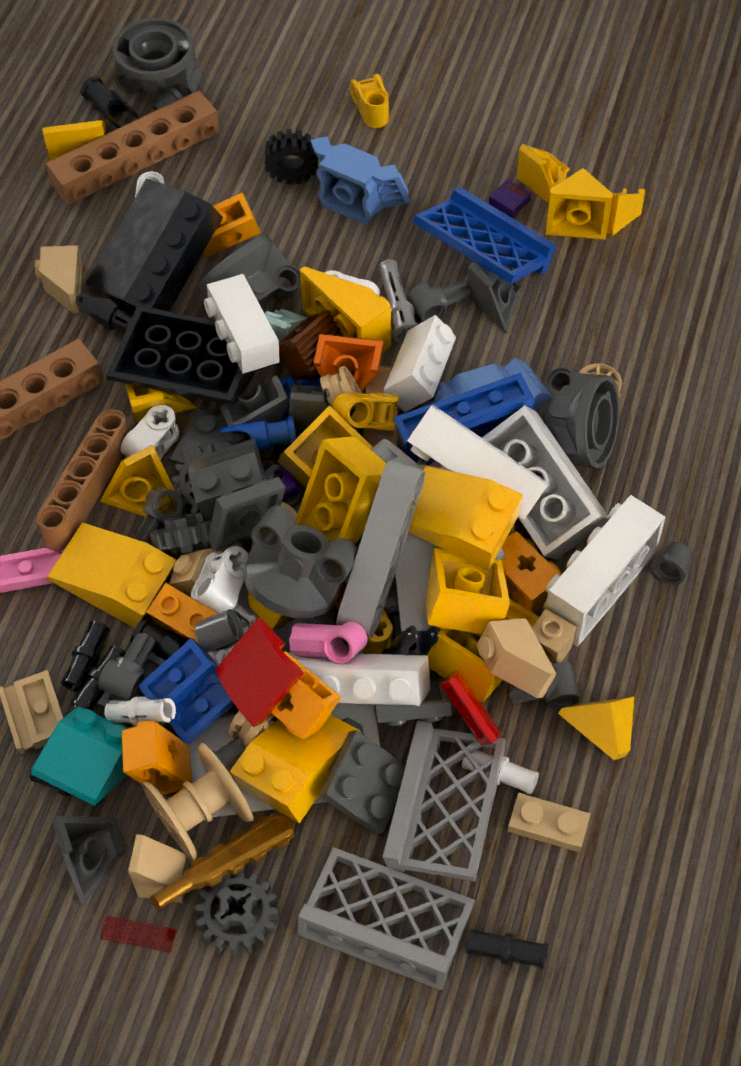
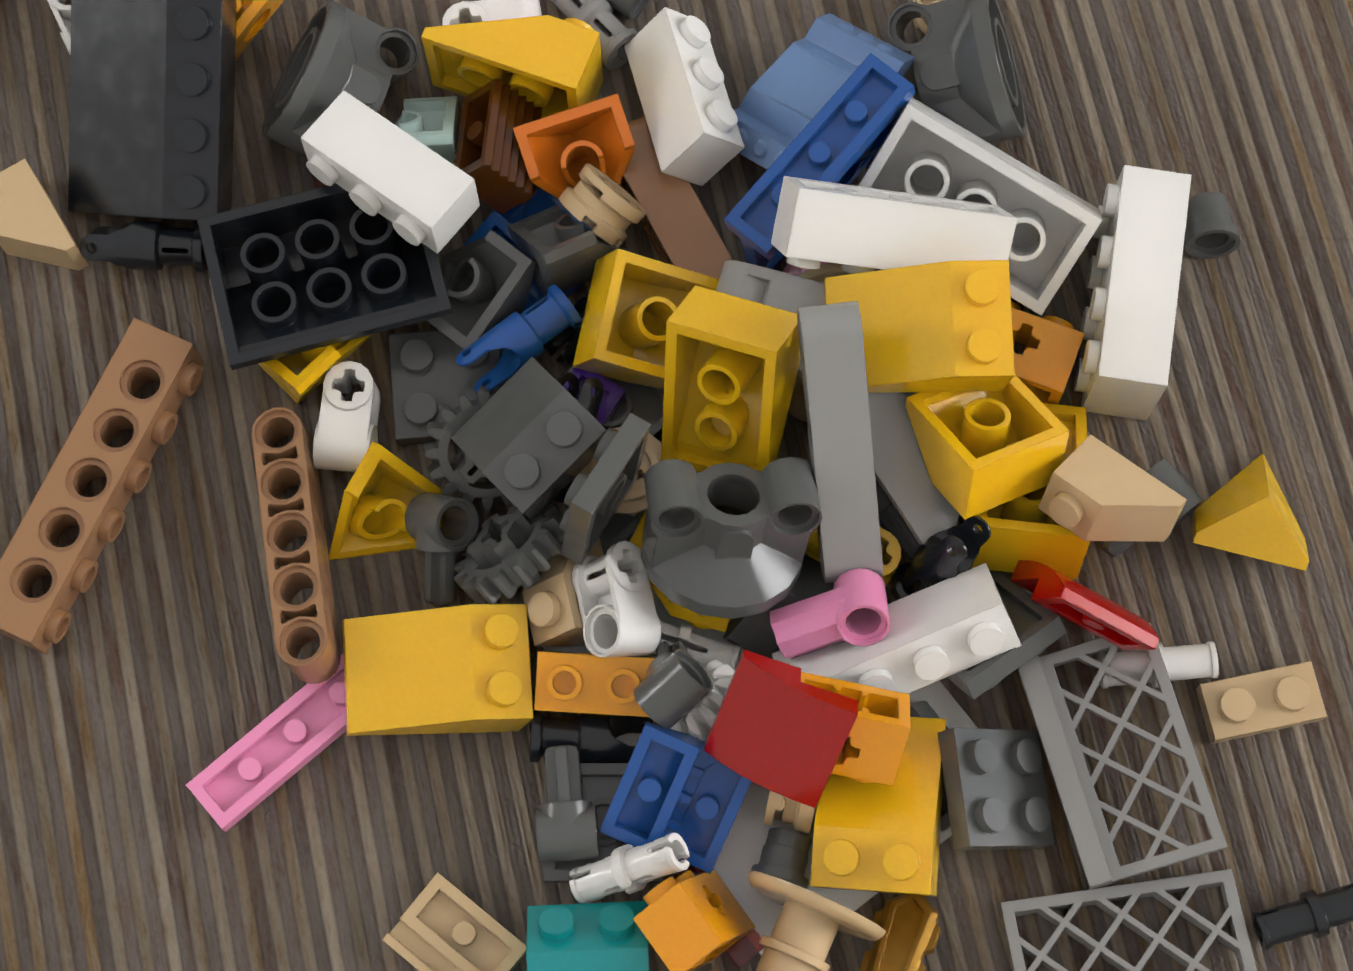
camera: 30 degrees left, 15 degrees up
(85, 656) = (474, 817): black pin -> none
(90, 693) = (520, 842): black pin -> none
(371, 411) = (665, 220): yellow piece -> none
(554, 635) = (1122, 426): tan brick -> none

